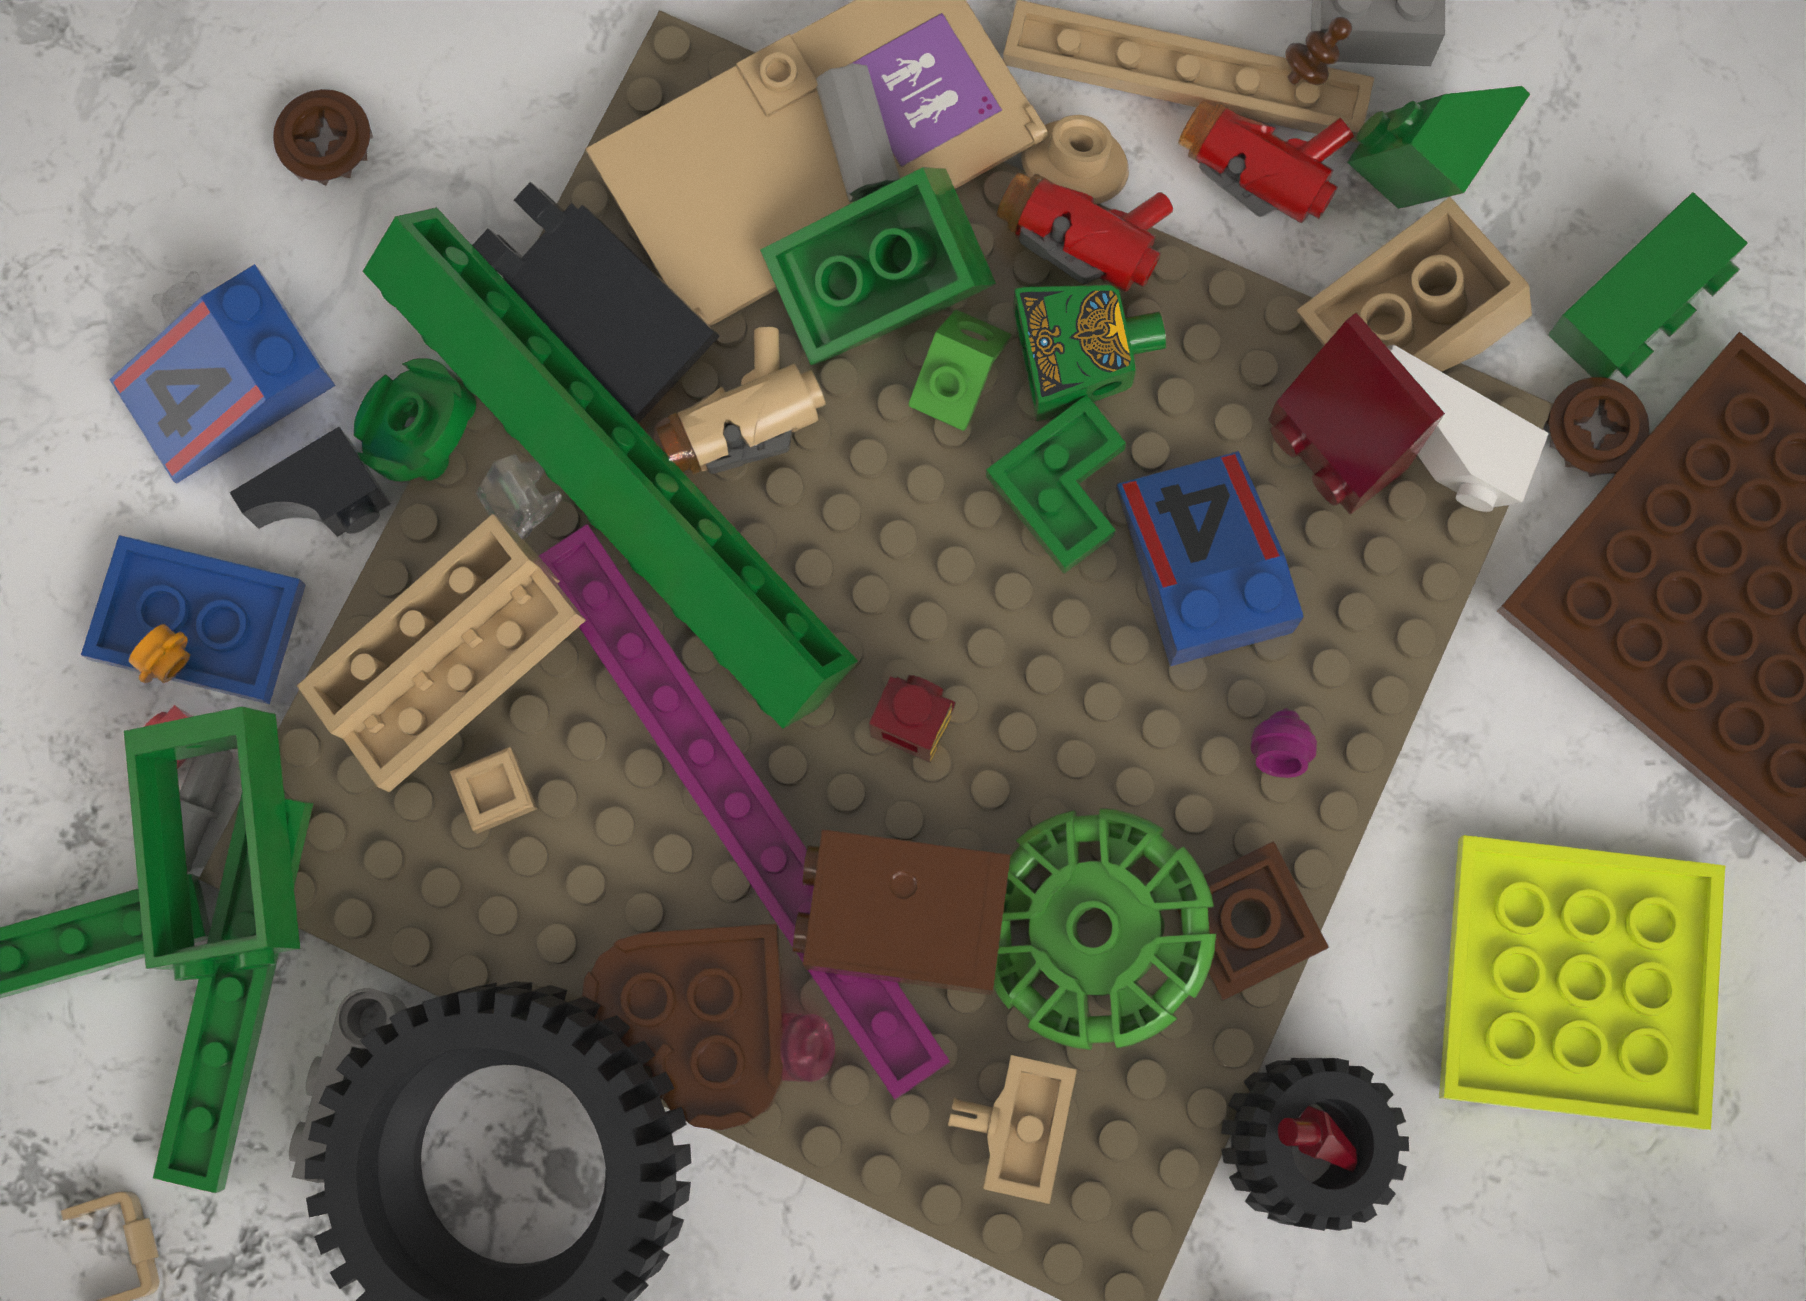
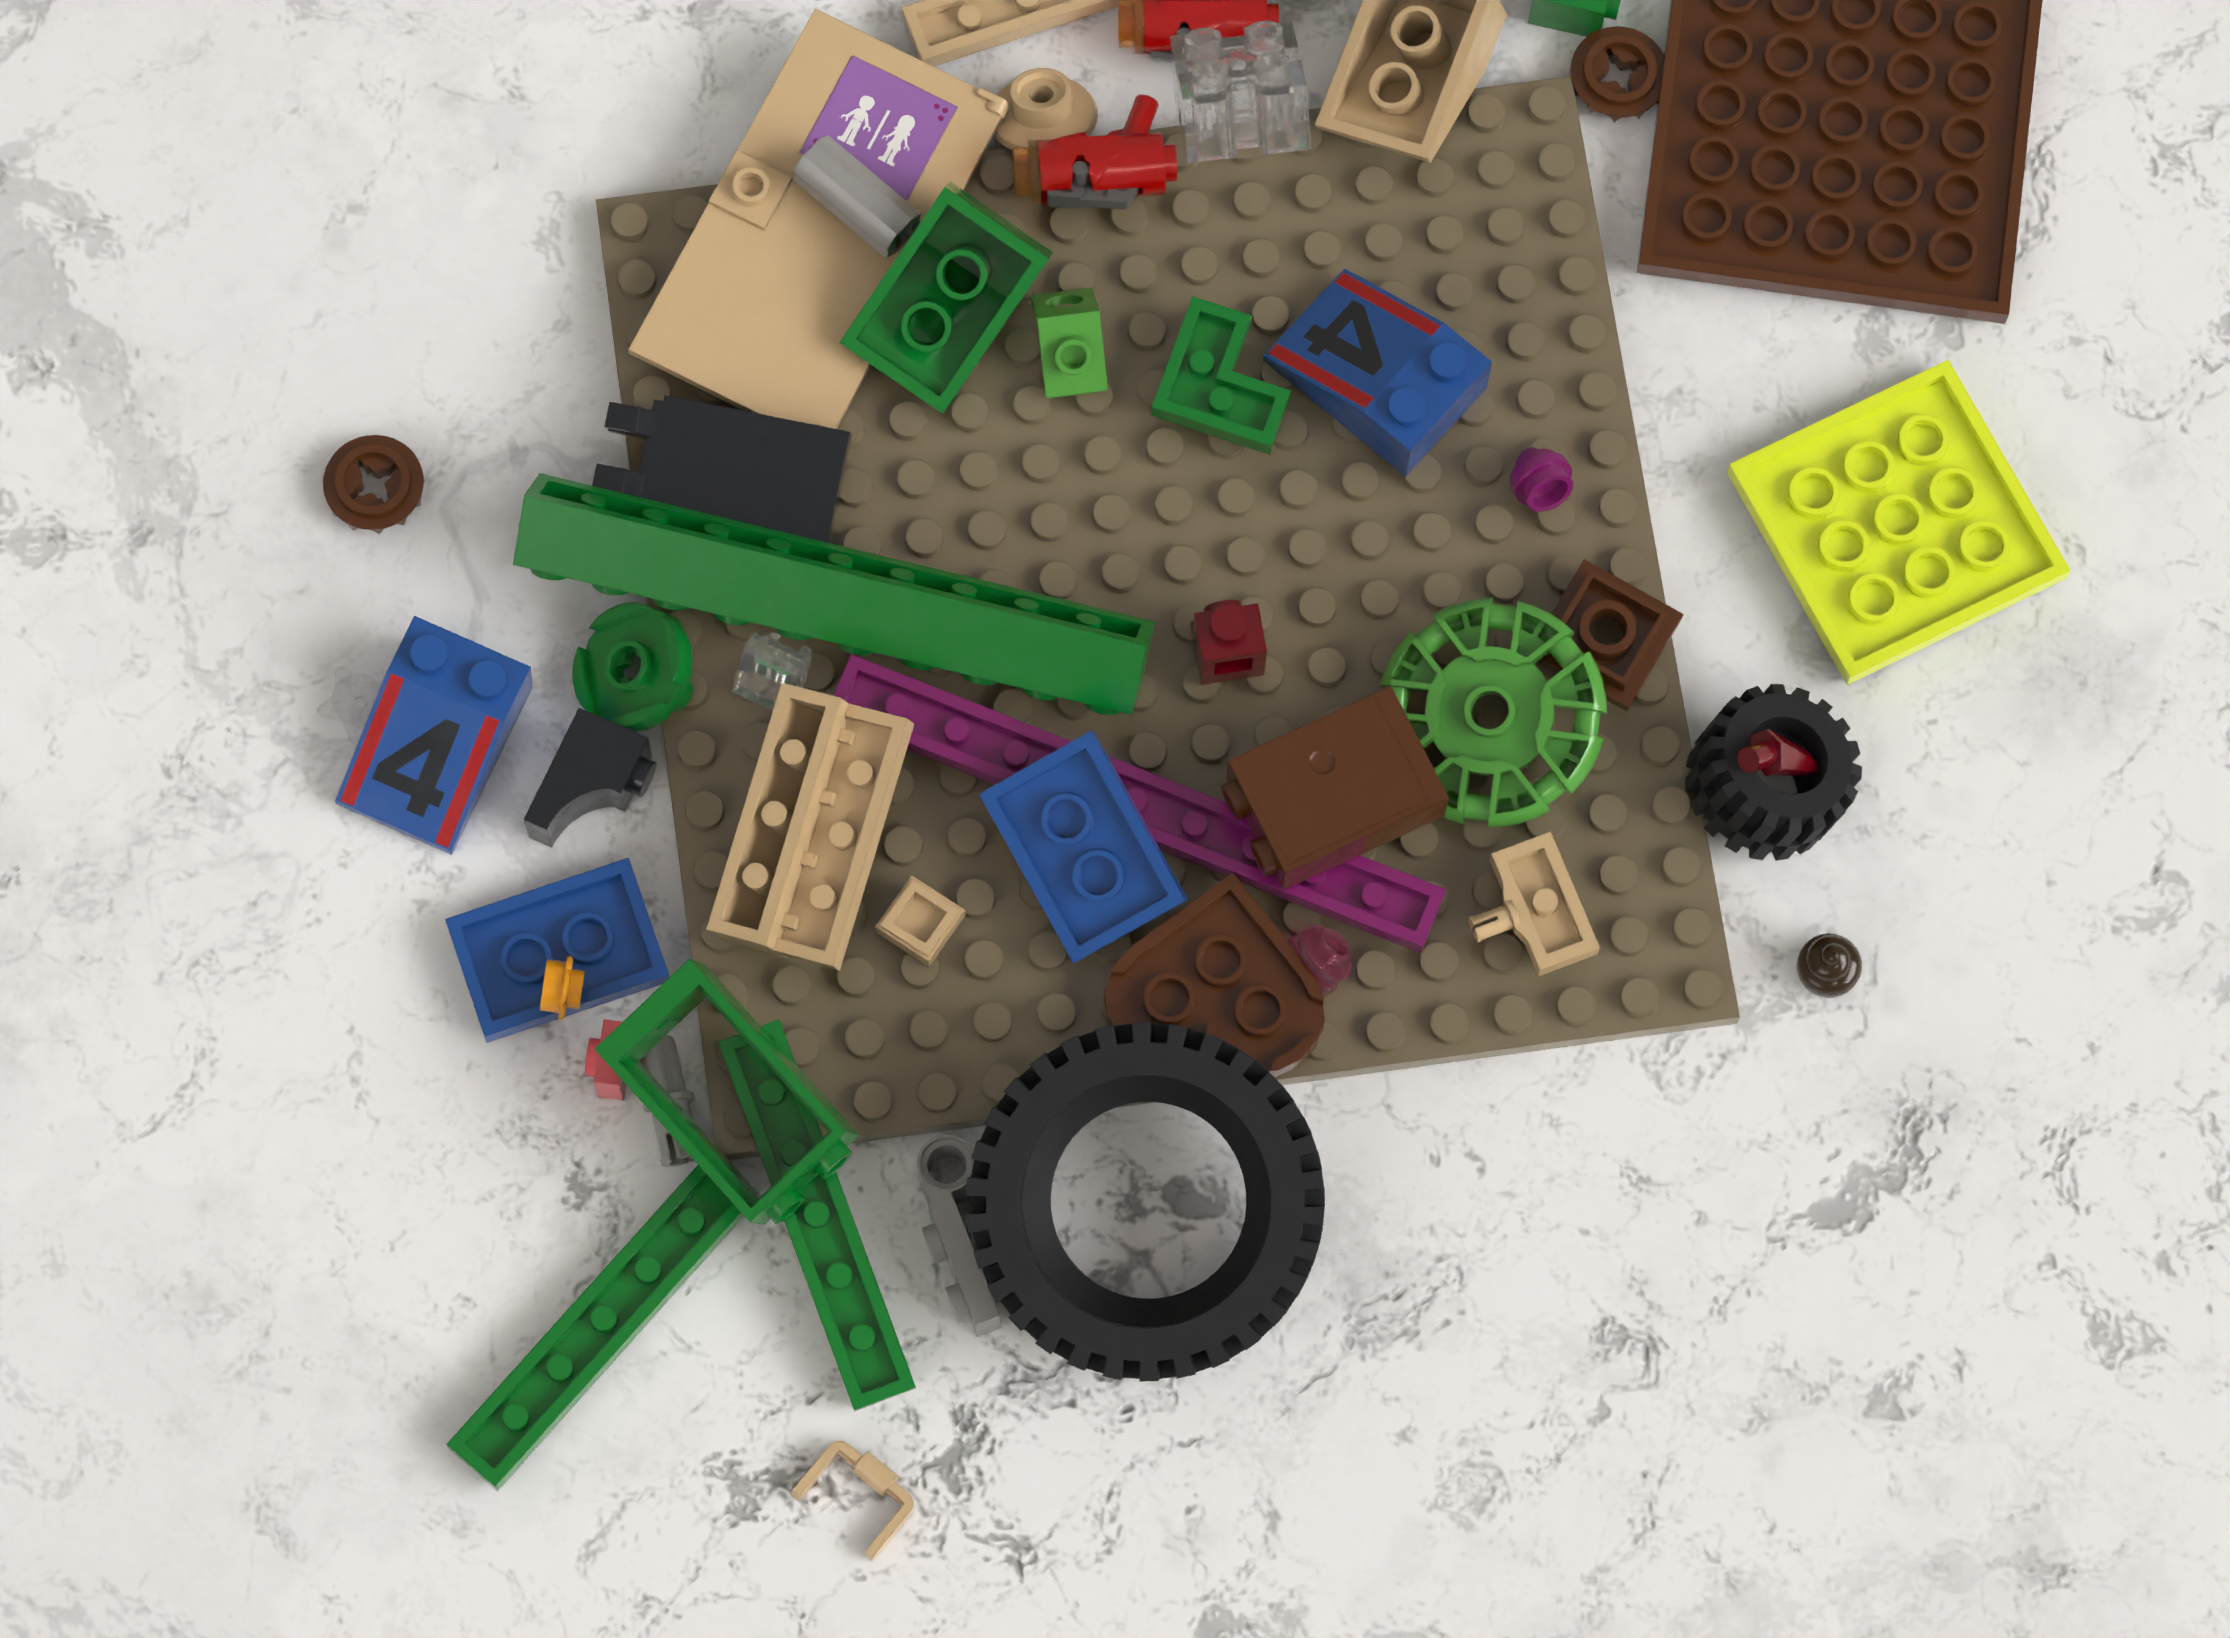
camera: 40 degrees left, 5 degrees down
(661, 820) = (1083, 846): none -> blue plate
(745, 421) = (925, 489): tan piece -> none
(1079, 343) = (1156, 260): torso -> none
(1248, 242) = (1240, 91): none -> clear brick
(1354, 416) = (1426, 178): dark red slope -> none
(1477, 444) = (1513, 142): white slope -> none

